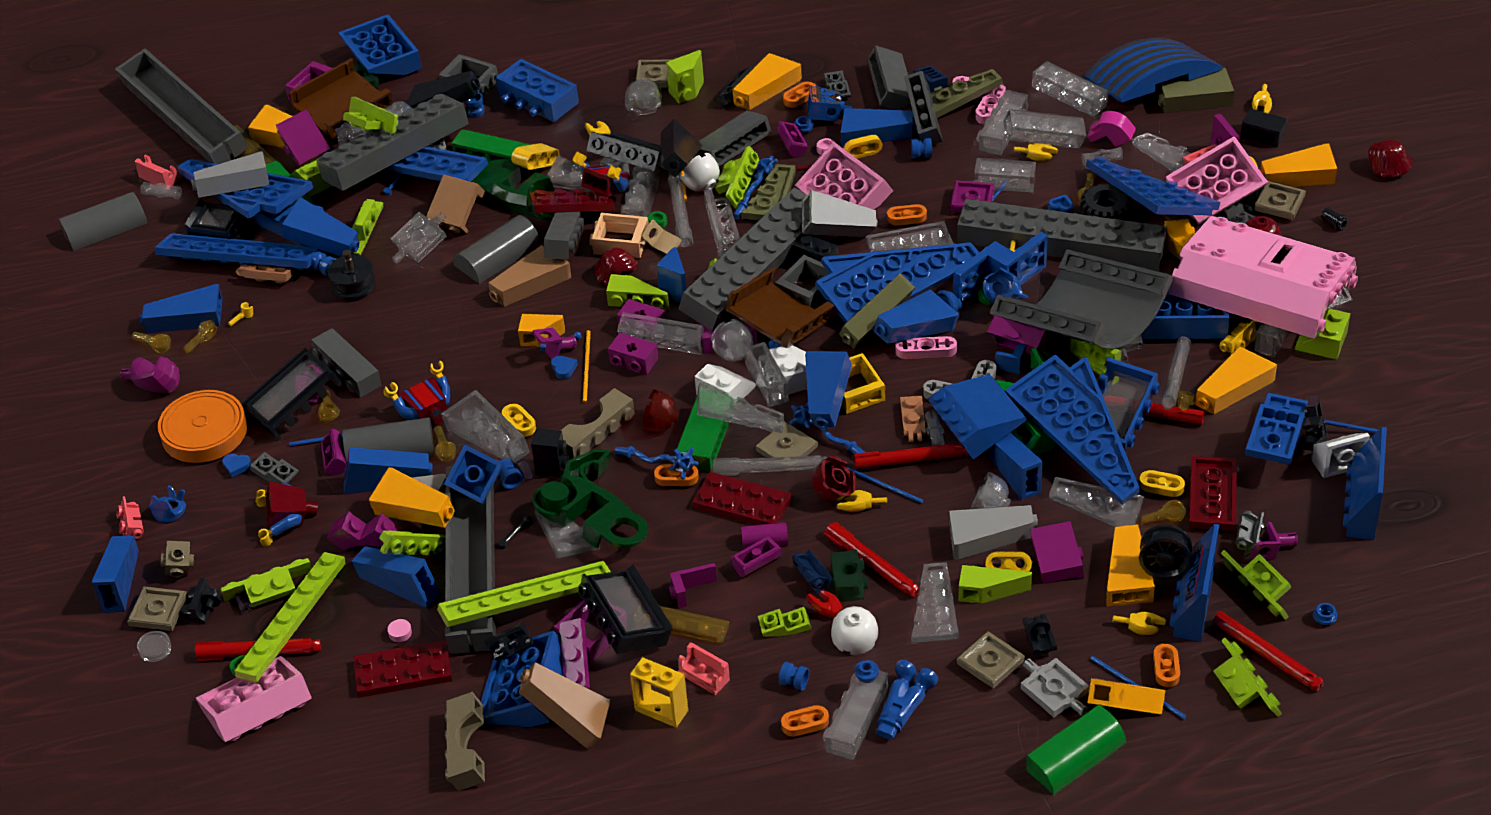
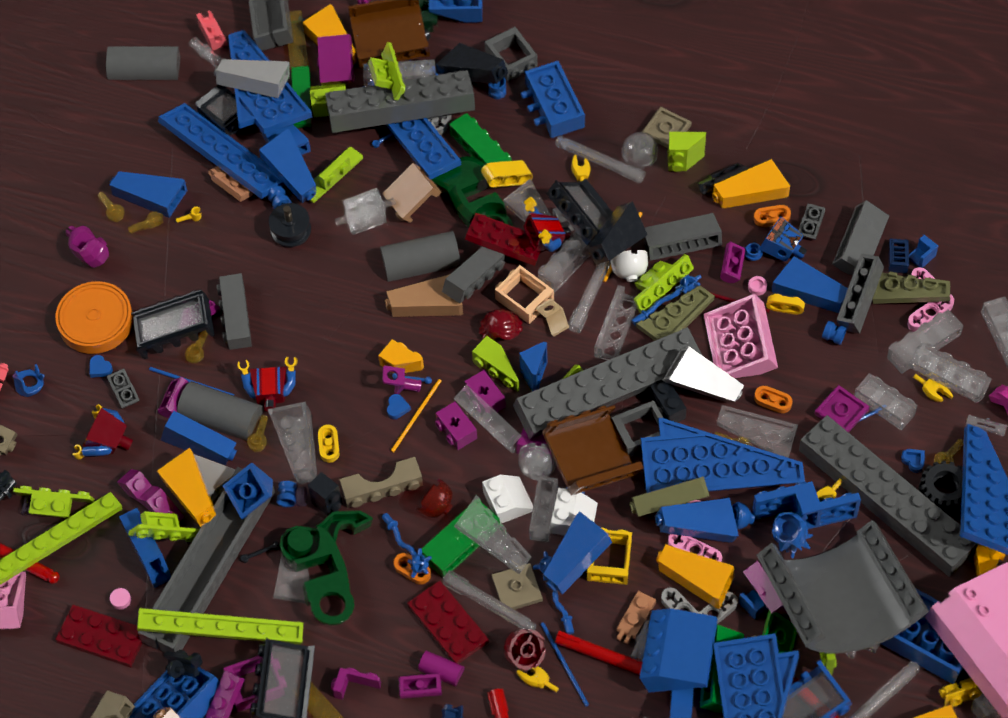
camera: 30 degrees right, 15 degrees up
(613, 117) = (601, 159): none -> clear piece
(659, 217) = (567, 291): green tile -> none
(943, 358) = (697, 573): none -> light orange slope
(951, 64) = (924, 252): none -> blue panel

